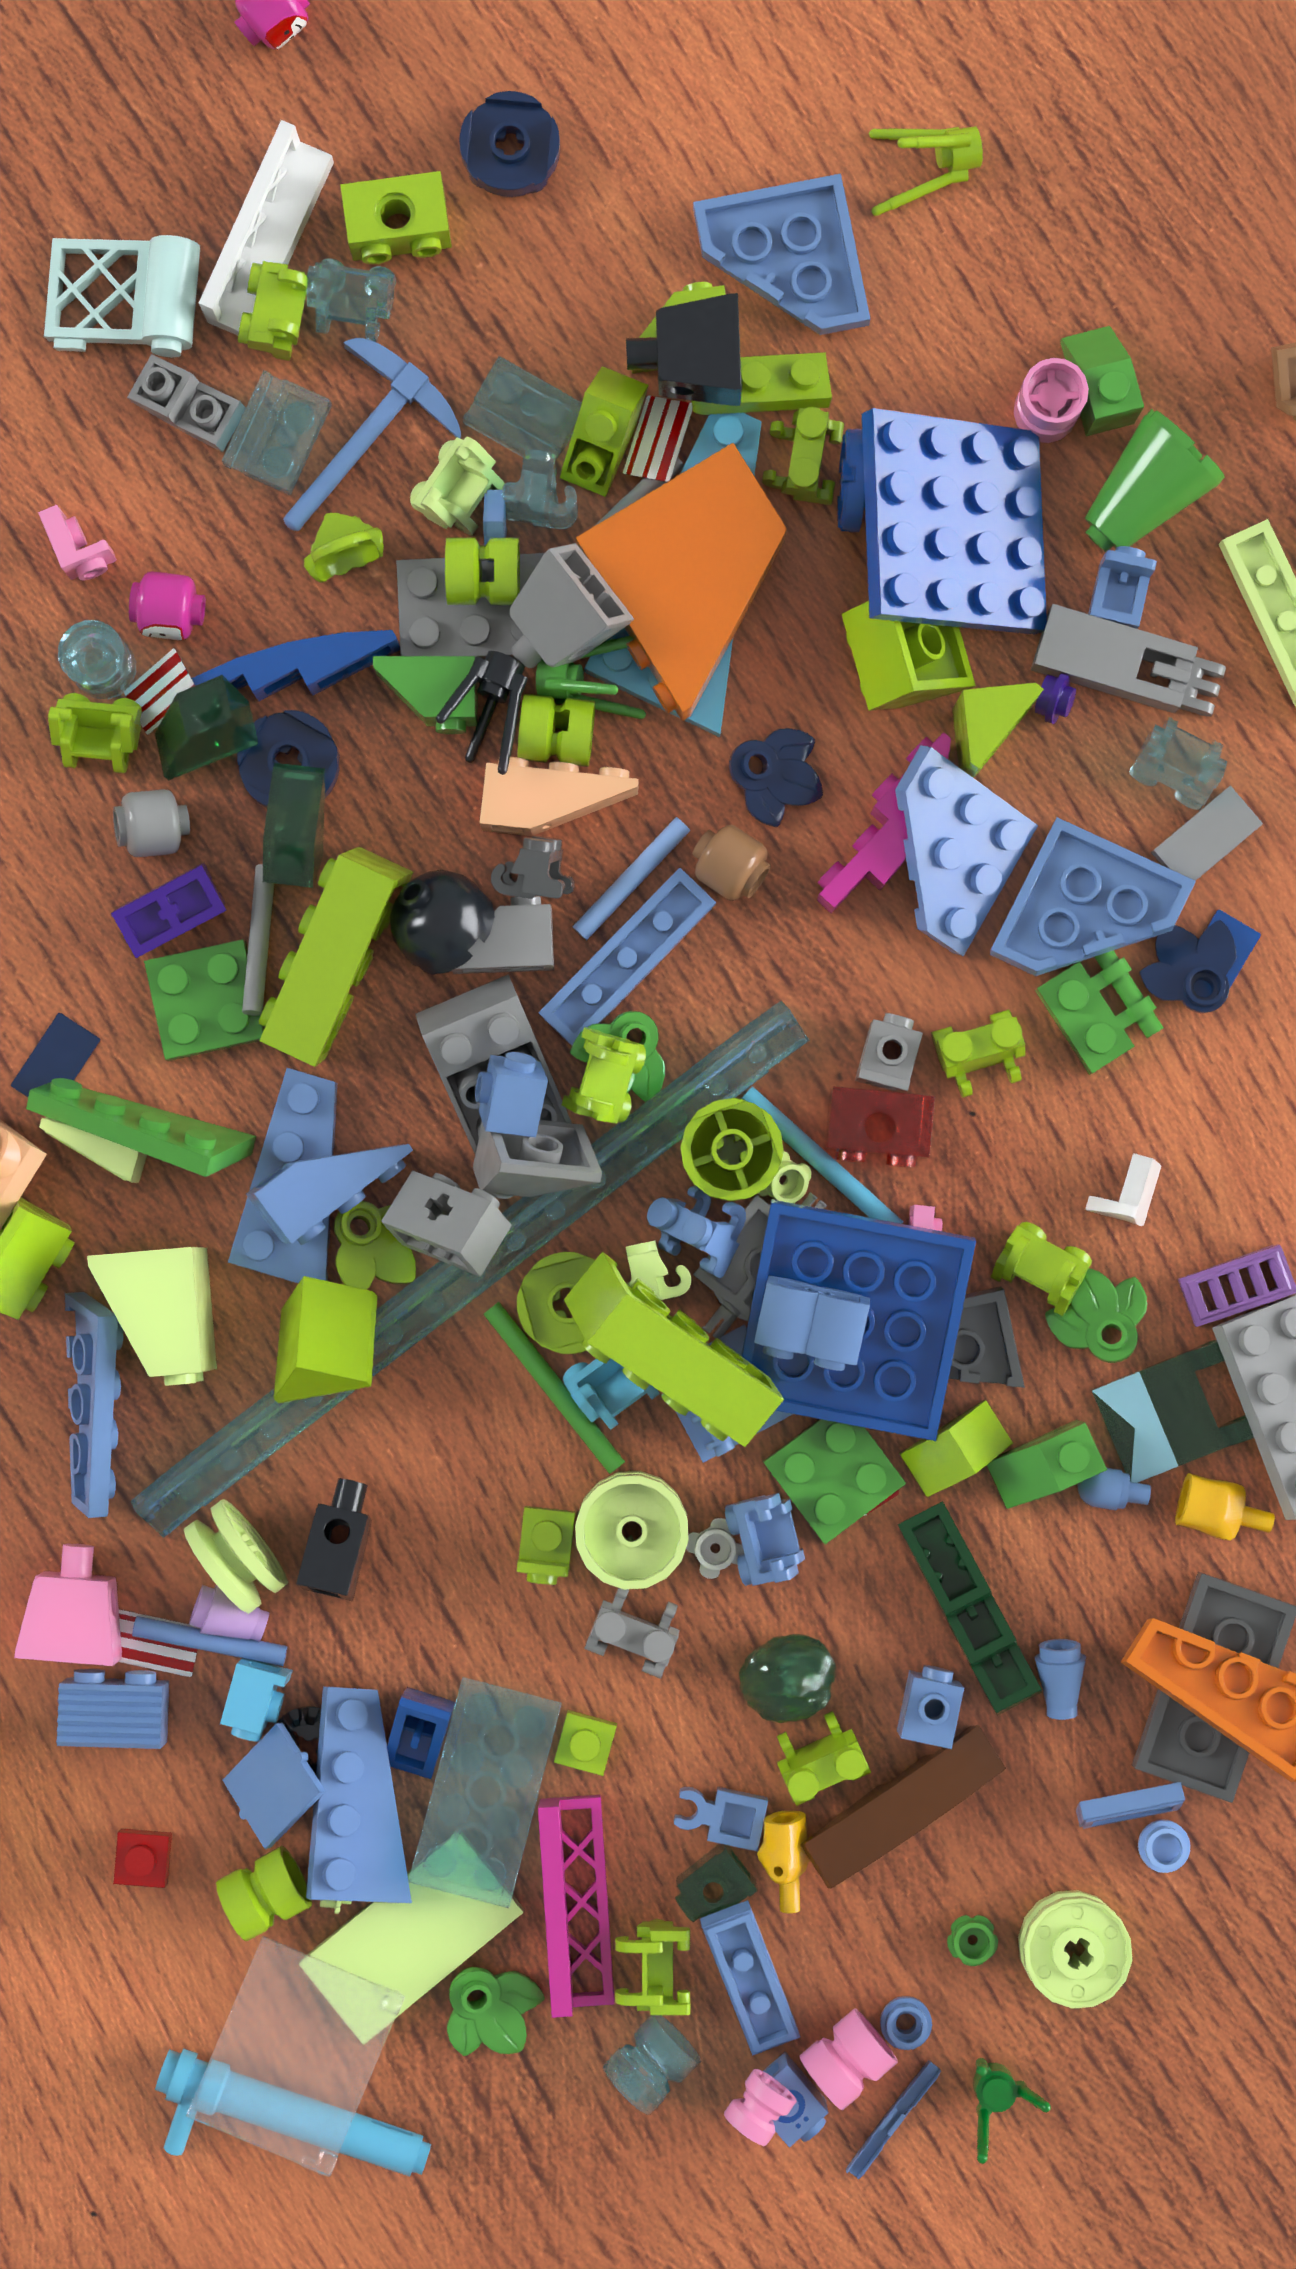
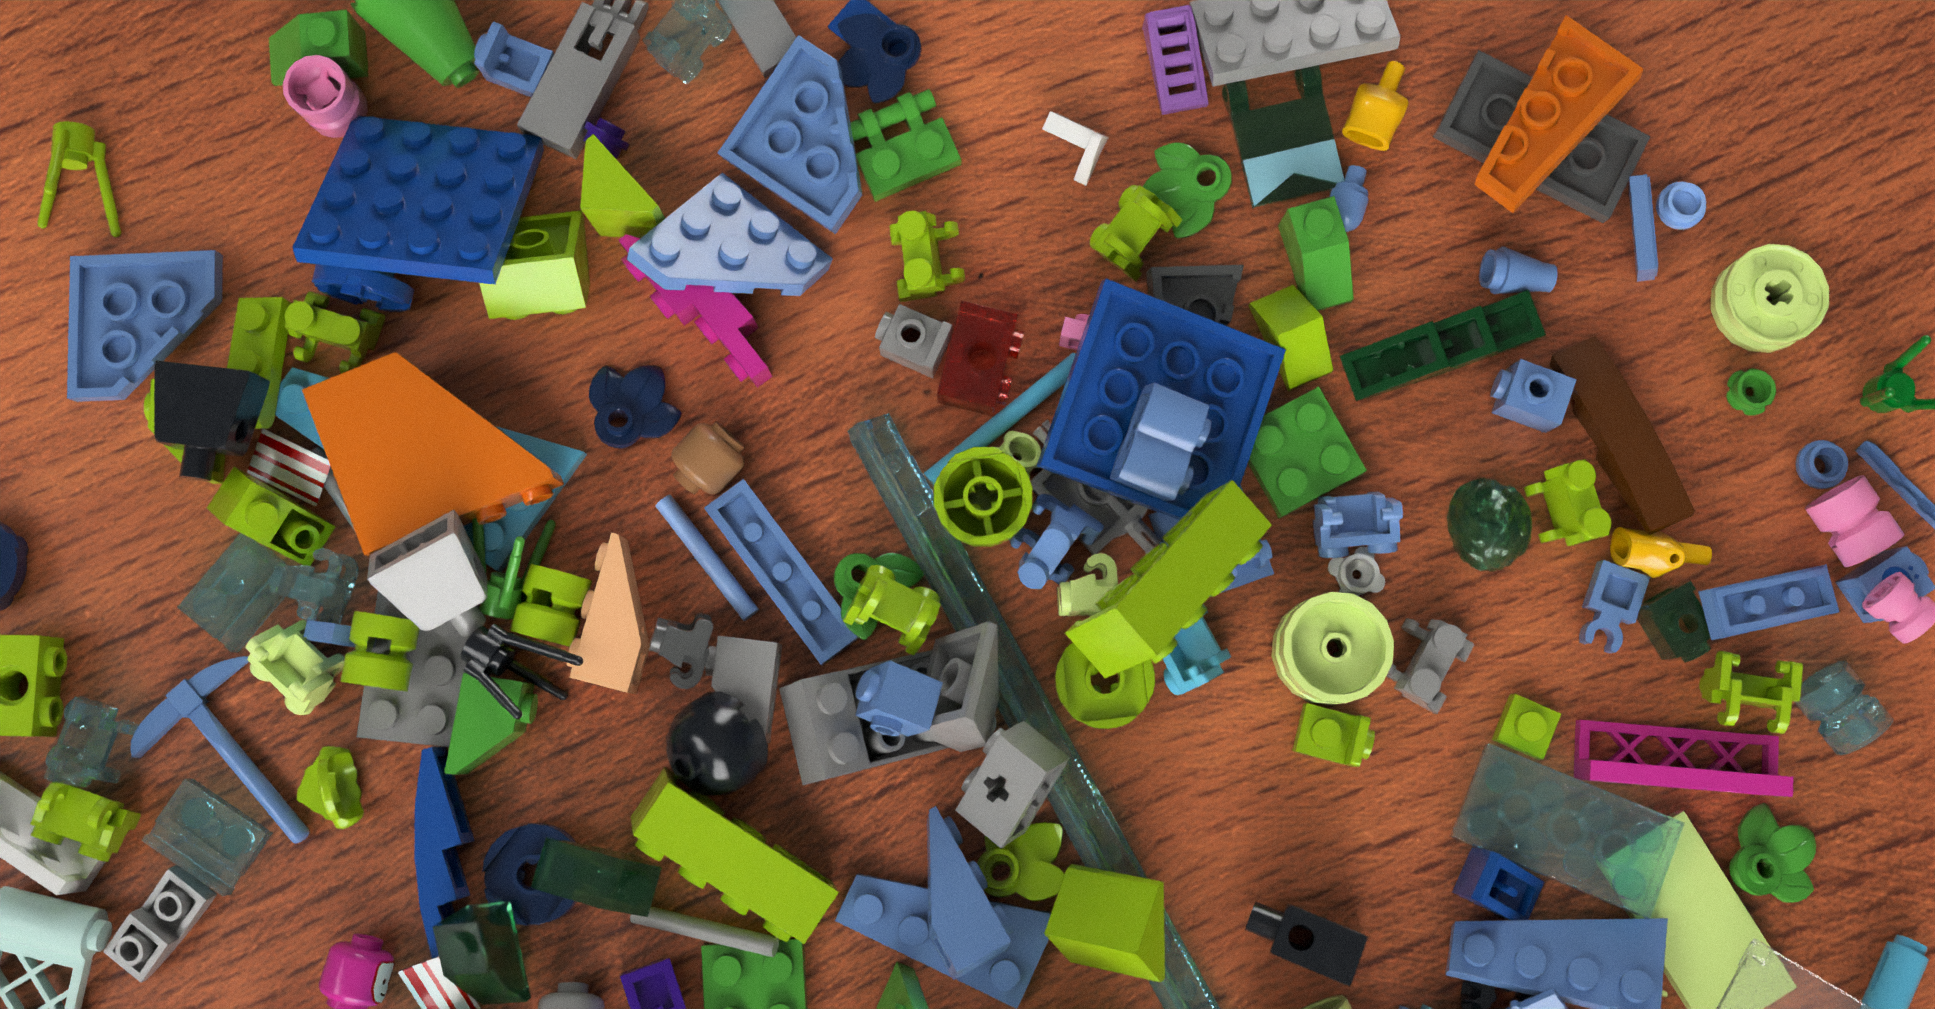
camera: 80 degrees left, 5 degrees down
(553, 1387) = (1183, 705): bright green bar -> none

